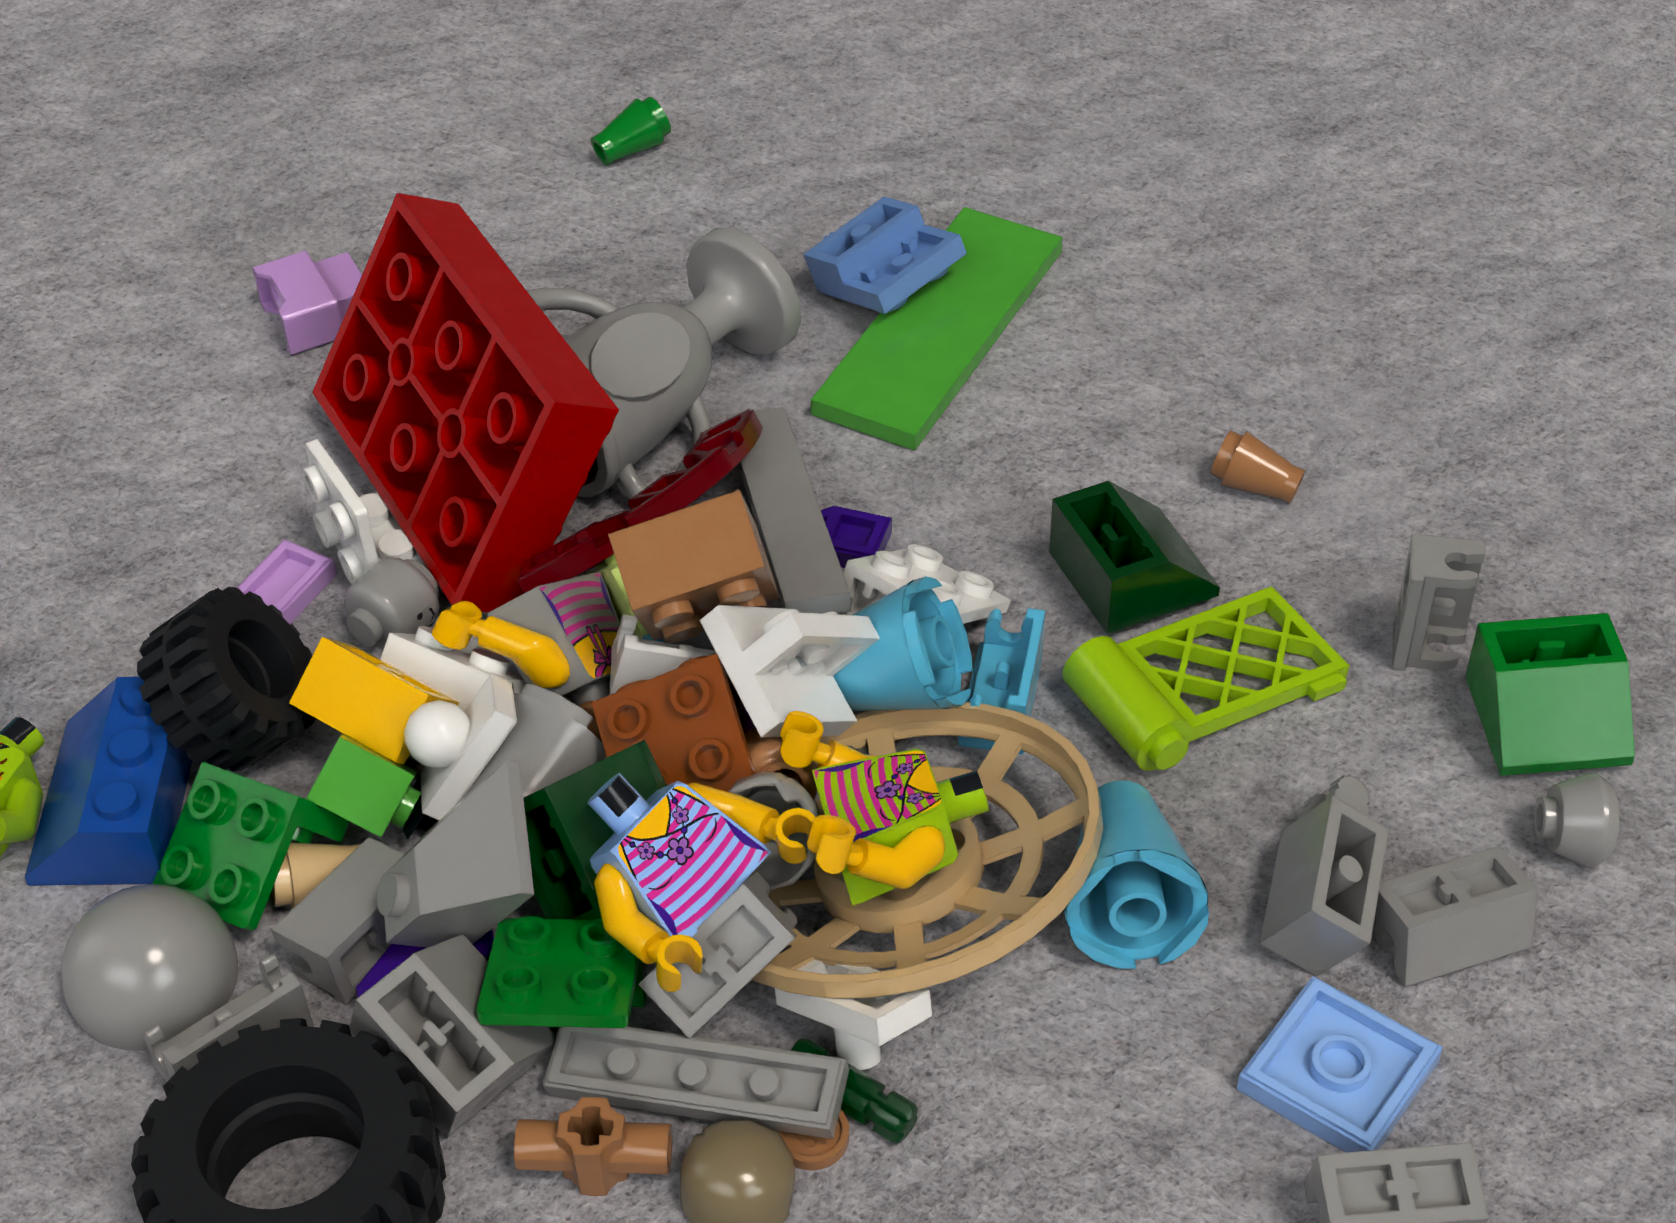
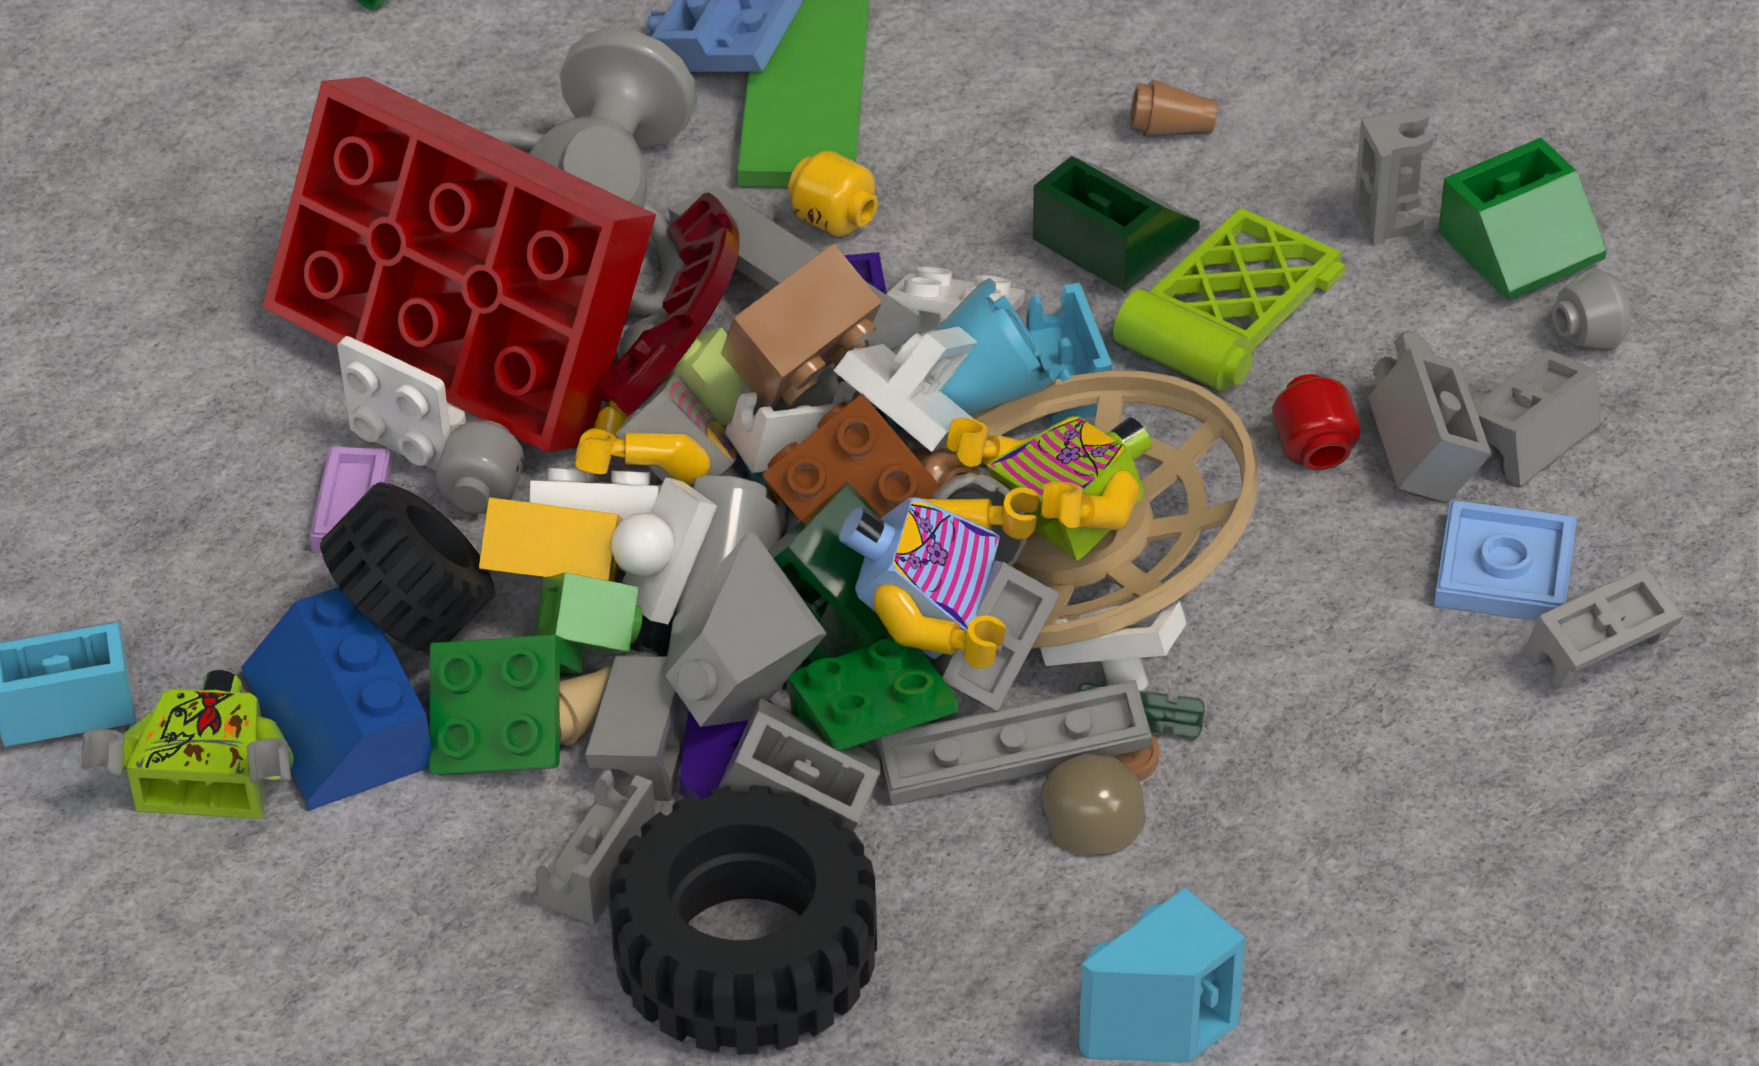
camera: 25 degrees left, 0 degrees up
(145, 963) = (482, 827): light grey piece -> none
(307, 296) = (185, 221): lavender piece -> none
(593, 1146) = (967, 819): medium nougat axle -> none
(878, 444) = (833, 193): none -> yellow head
(1142, 888) = (1301, 476): medium azure cone -> none
(1218, 834) = (1316, 421): none -> red head

